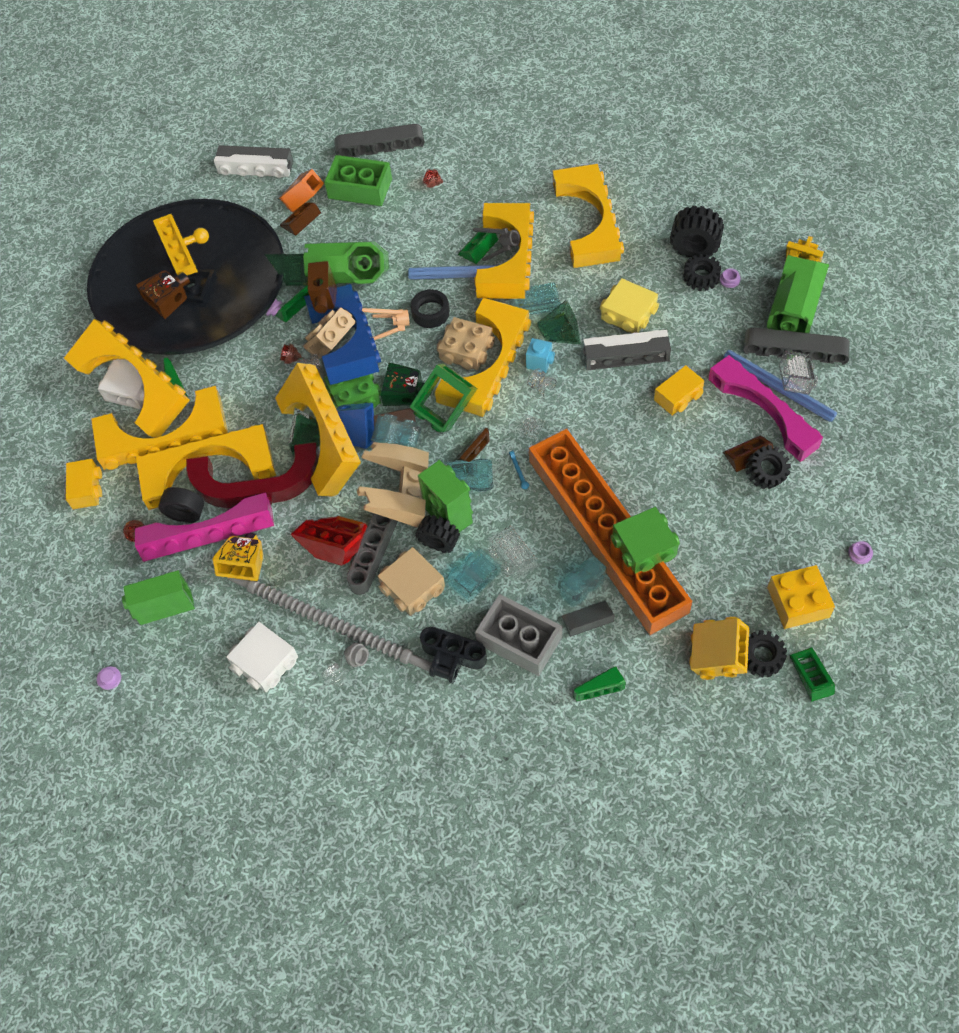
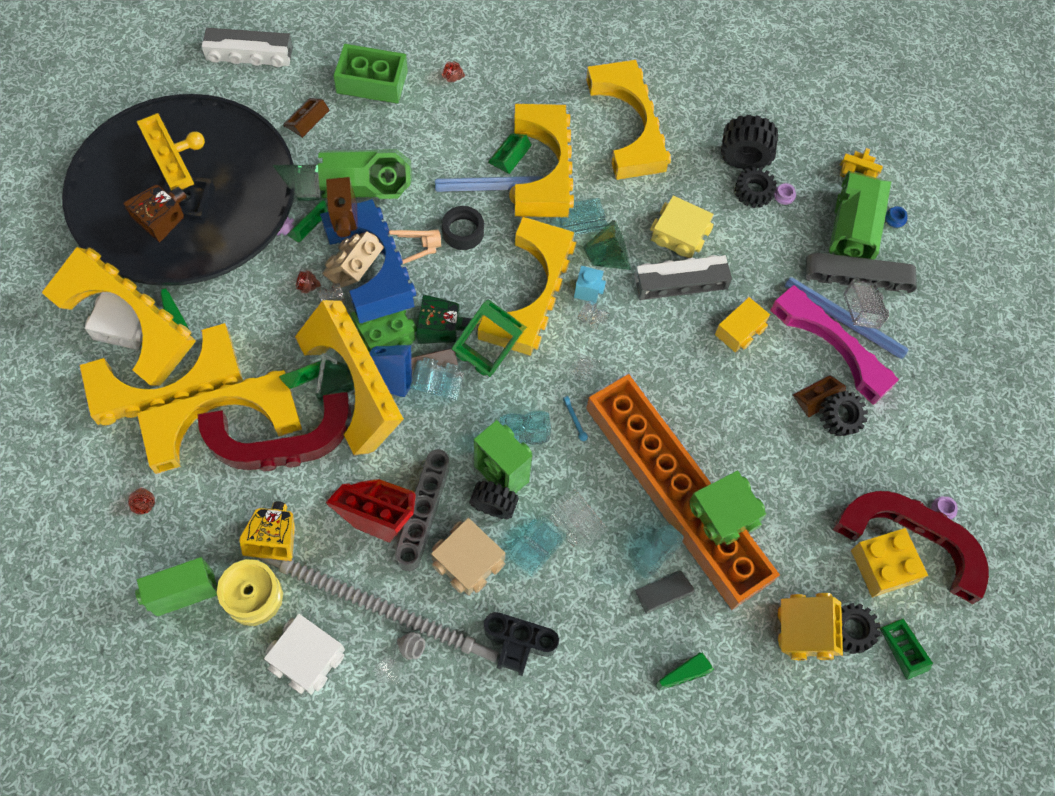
camera: 15 degrees left, 5 degrees up
(83, 483) = (75, 444): yellow brick -> none
(109, 678) = (124, 685): lavender plate -> none
(162, 540) = (175, 513): dark pink arch -> none
(181, 505) = (196, 470): black tyre -> none
(219, 605) = (257, 606): none -> light yellow wheel
(276, 428) = (301, 375): none -> green slope
(301, 190) = (306, 83): orange slope -> none
(379, 140) = (389, 25): dark grey beam -> none
(406, 504) = (458, 467): tan wedge -> none
(465, 344) = (506, 270): tan brick -> none
(475, 446) = (522, 393): reddish brown slope -> none
(507, 240) = (544, 148): dark grey plant -> none
(519, 634) = (593, 617): light grey brick -> none
(836, 297) = (896, 217): none -> blue plate
(838, 563) = (969, 558): none -> dark red arch

